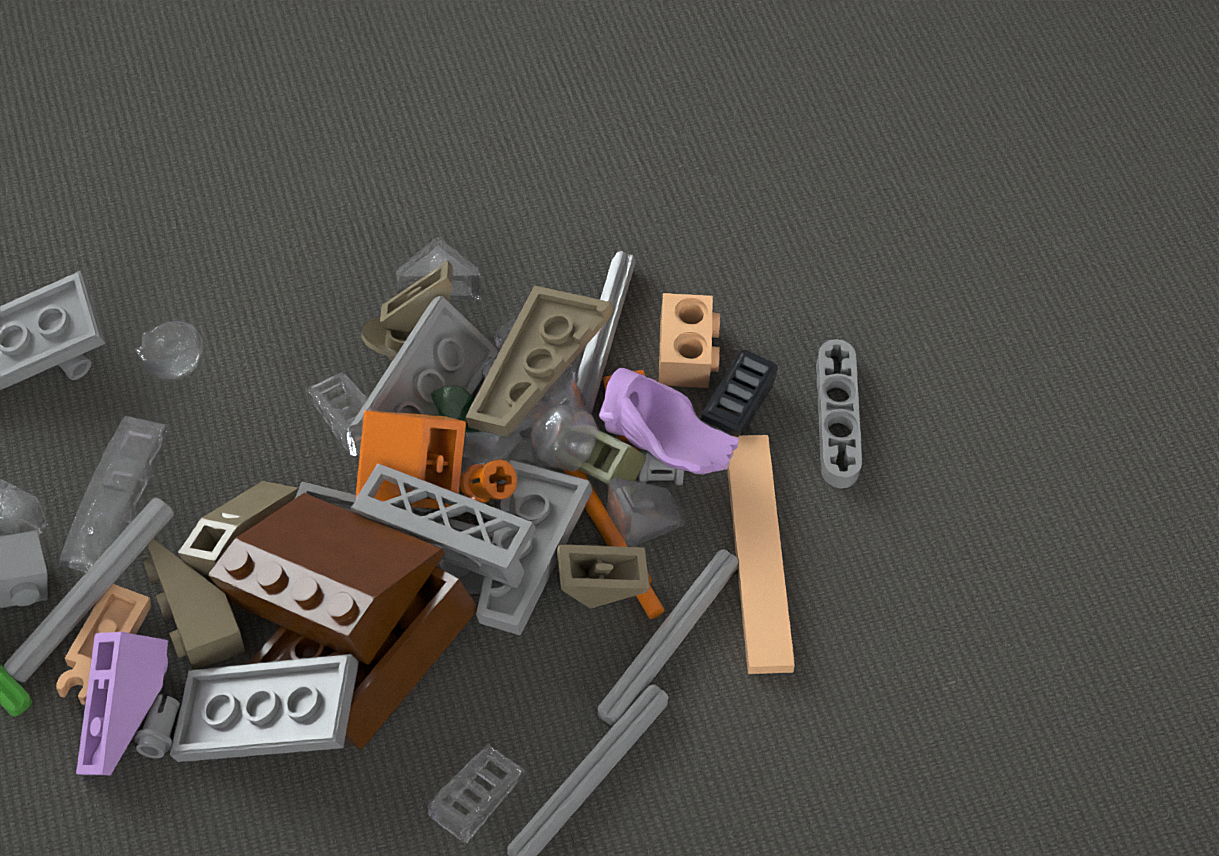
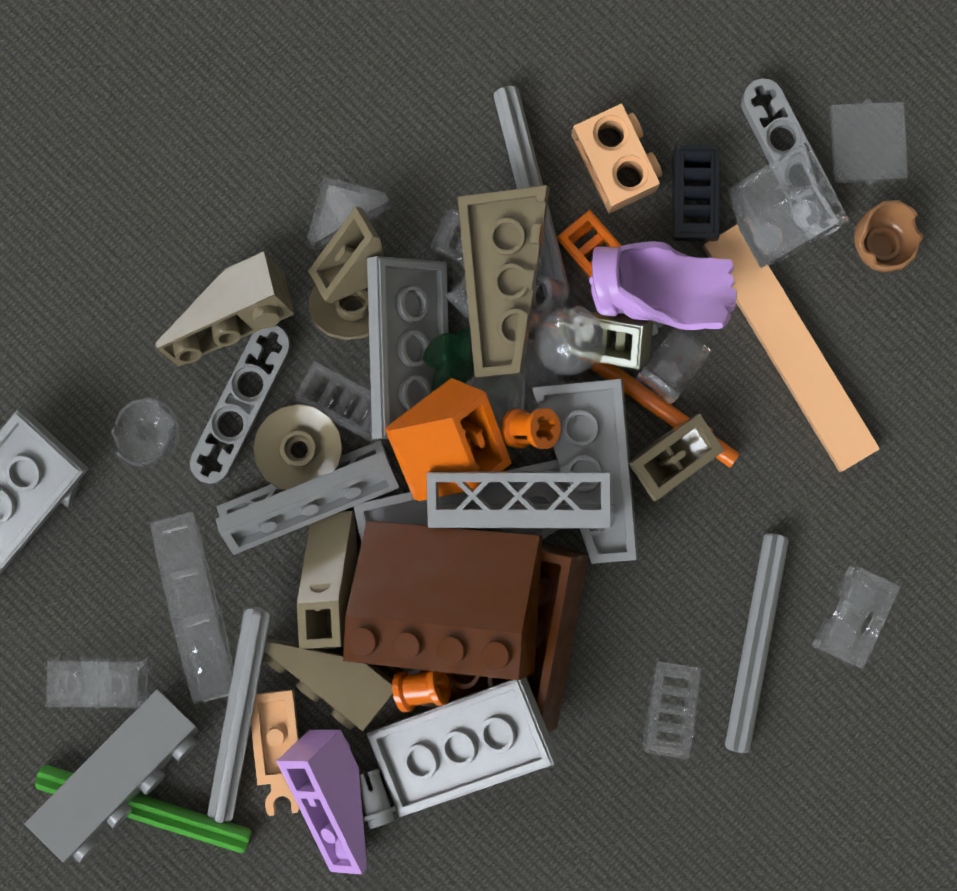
camera: 25 degrees left, 30 degrees up
(257, 367) = (247, 407): none -> light grey beam
(262, 641) = (420, 689): none -> orange bush
(265, 454) = (276, 512): none -> light grey fence
(280, 408) = (284, 430): none -> dark tan dish
(296, 296) = (233, 306): none -> dark tan slope
(668, 637) = (756, 476): light grey axle -> none
(714, 775) = (859, 595): none -> clear brick
(811, 439) = (785, 206): none -> clear slope
(890, 498) = (888, 236): none -> medium nougat hair
(913, 434) = (868, 142): none -> clear piece

